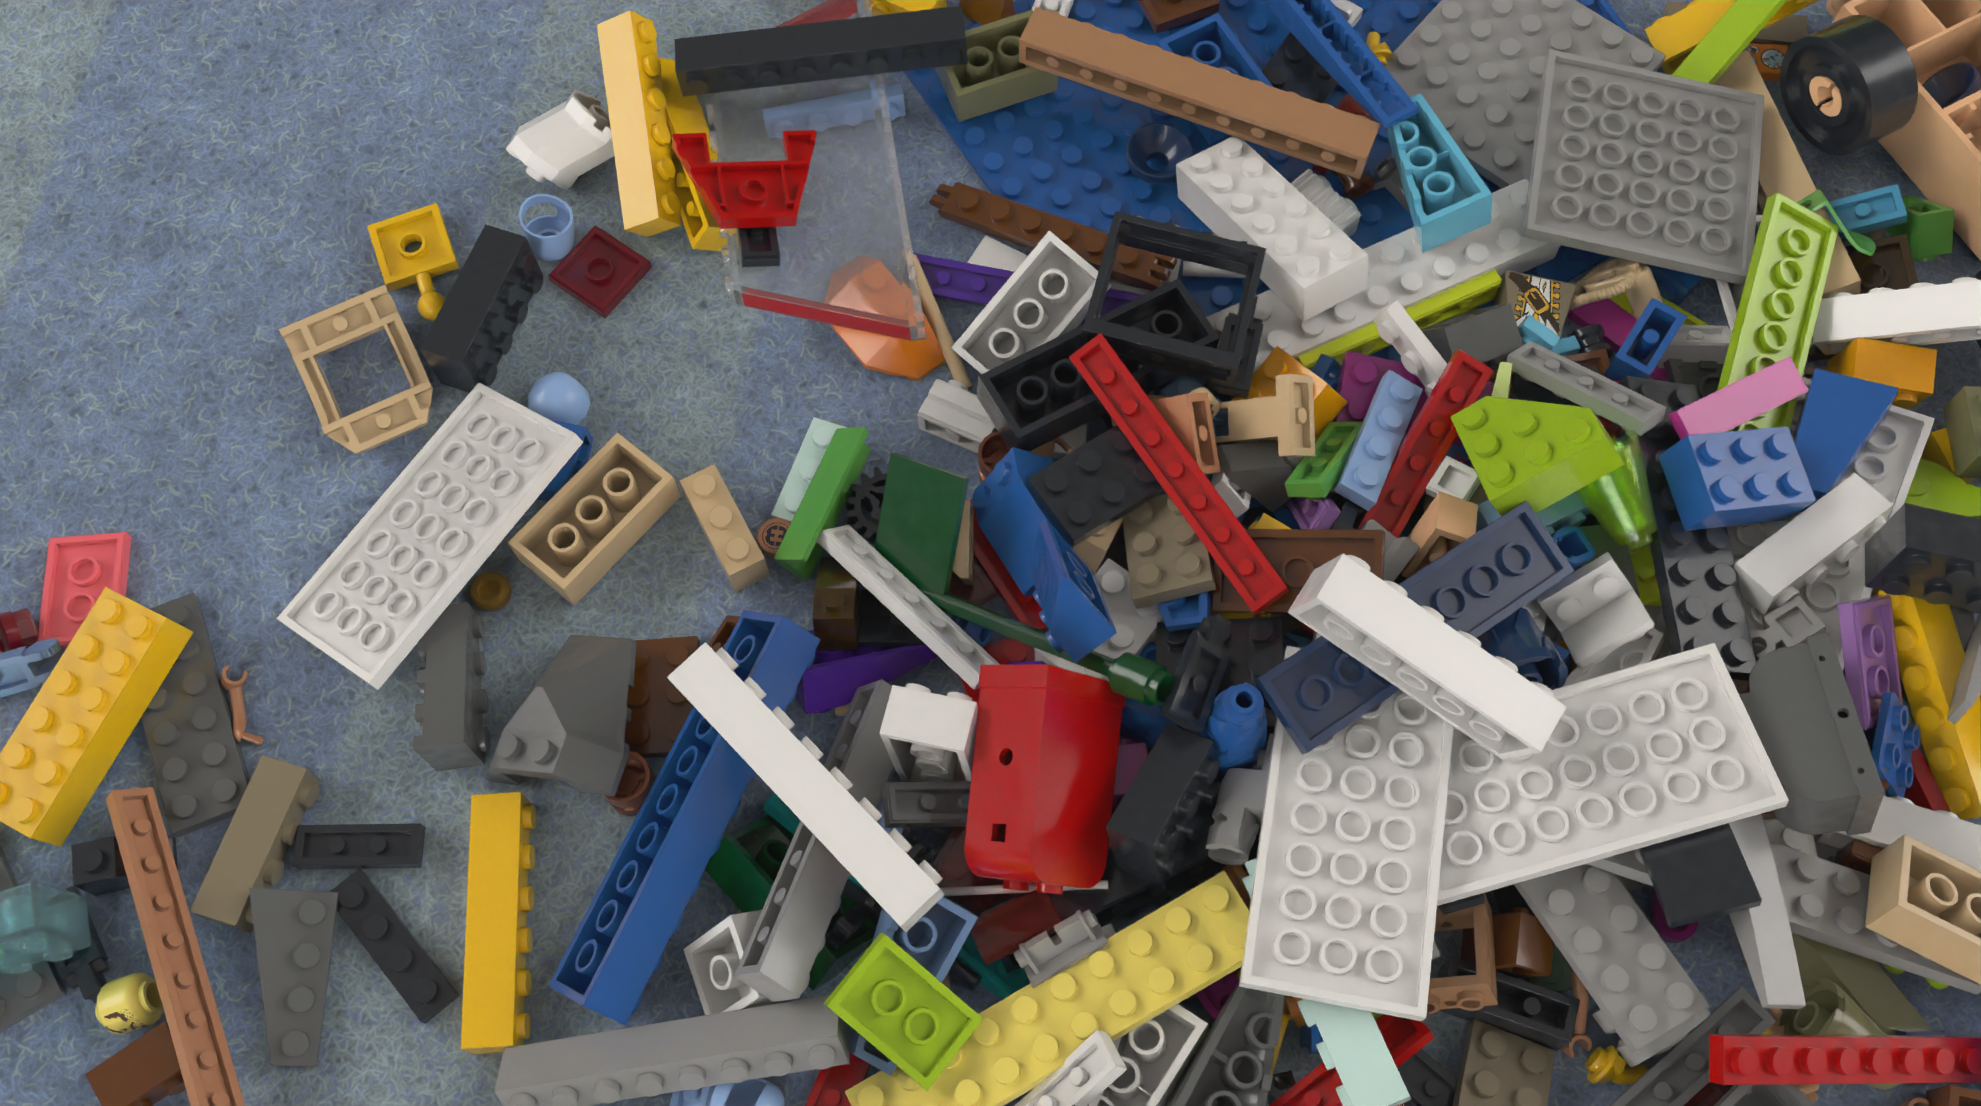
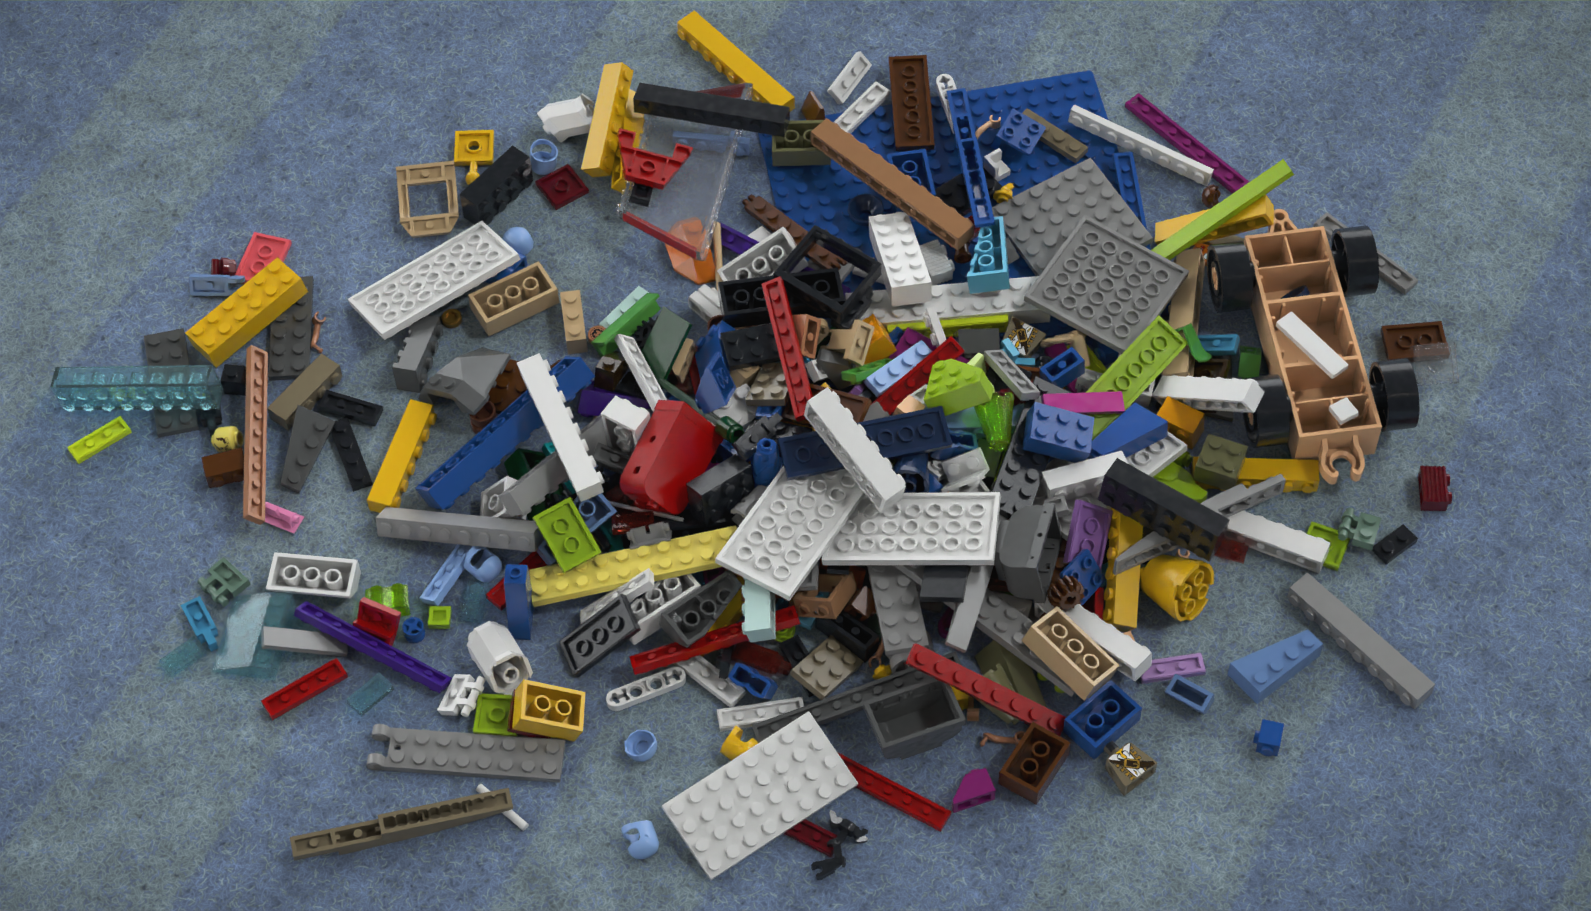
camera: 20 degrees right, 10 degrees down
(1905, 799) = (1065, 593): none -> reddish brown gear

